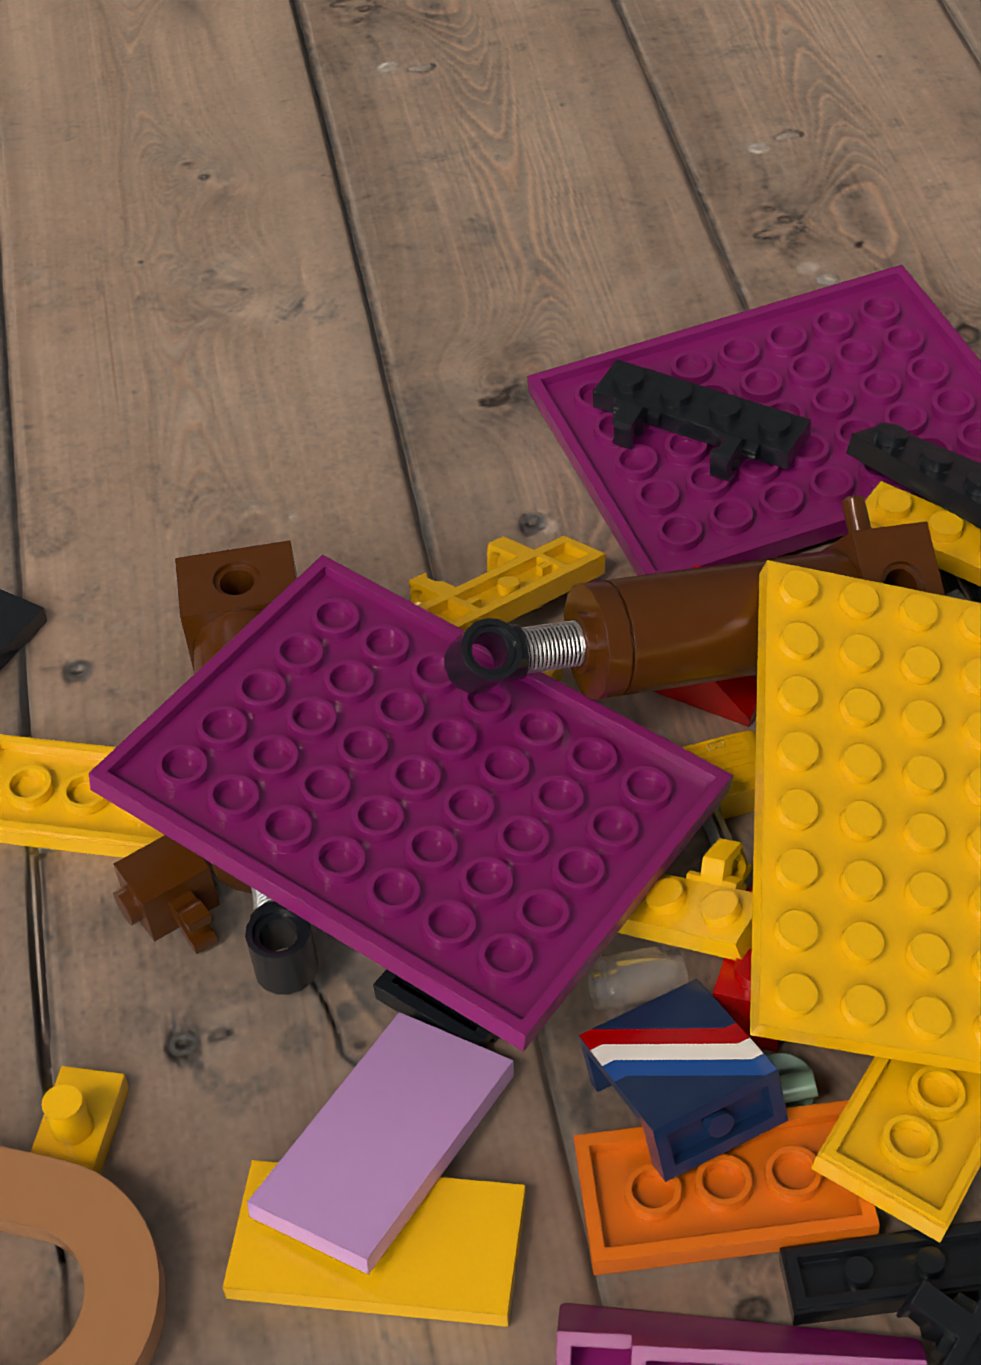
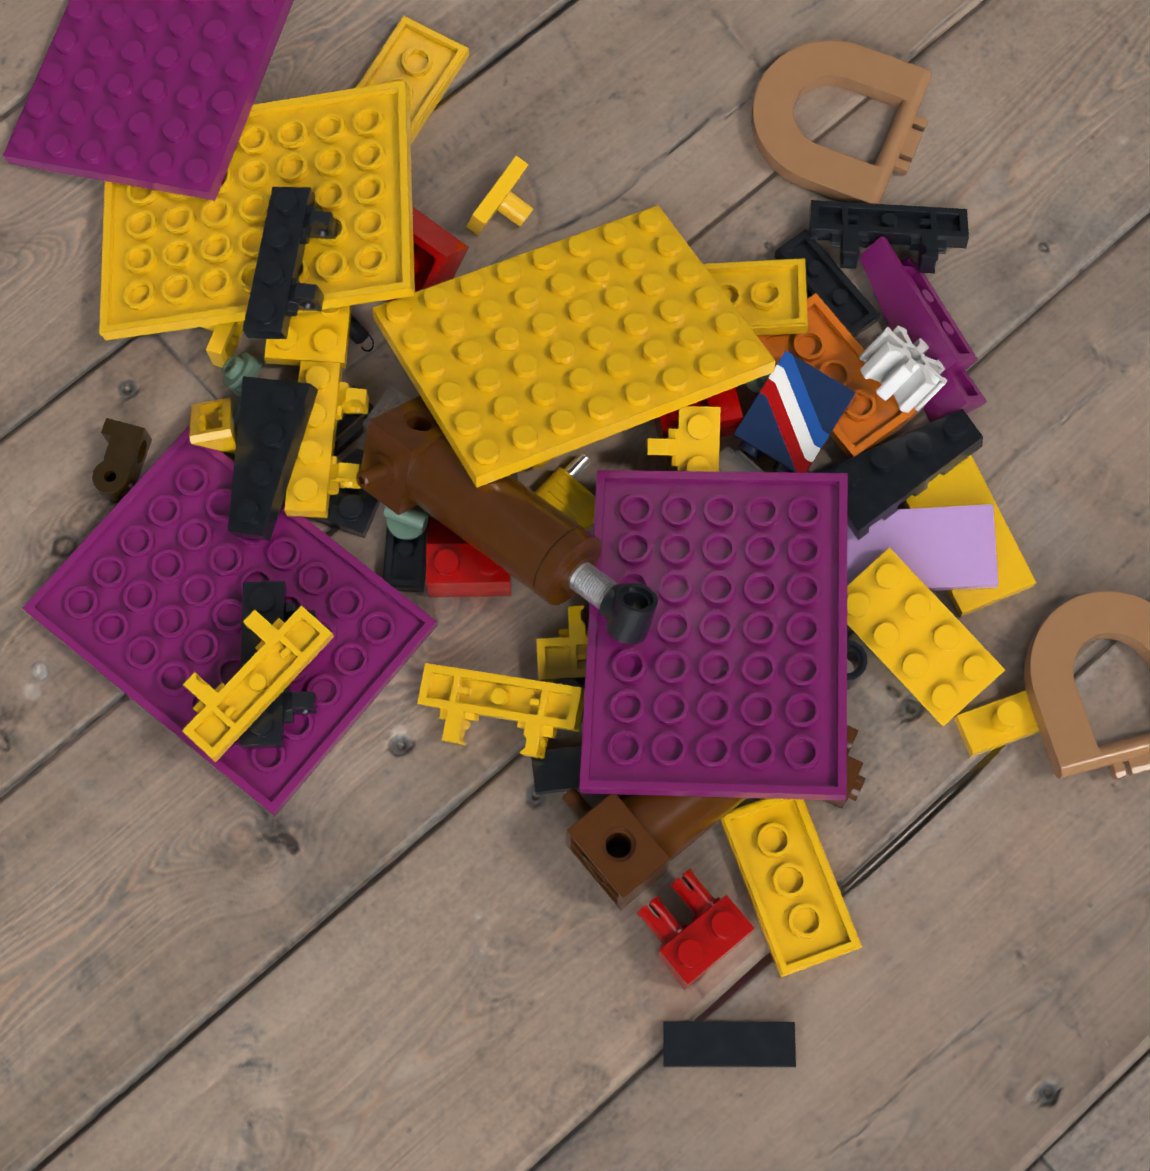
camera: 125 degrees left, 25 degrees up
(87, 671) = (712, 935): none -> red brick
(259, 1073) = (918, 637): none -> yellow plate
(514, 1178) = (904, 467): none -> black wing
(642, 1272) = (902, 369): none -> white gear
(661, 355) = (279, 659): none -> yellow hinge

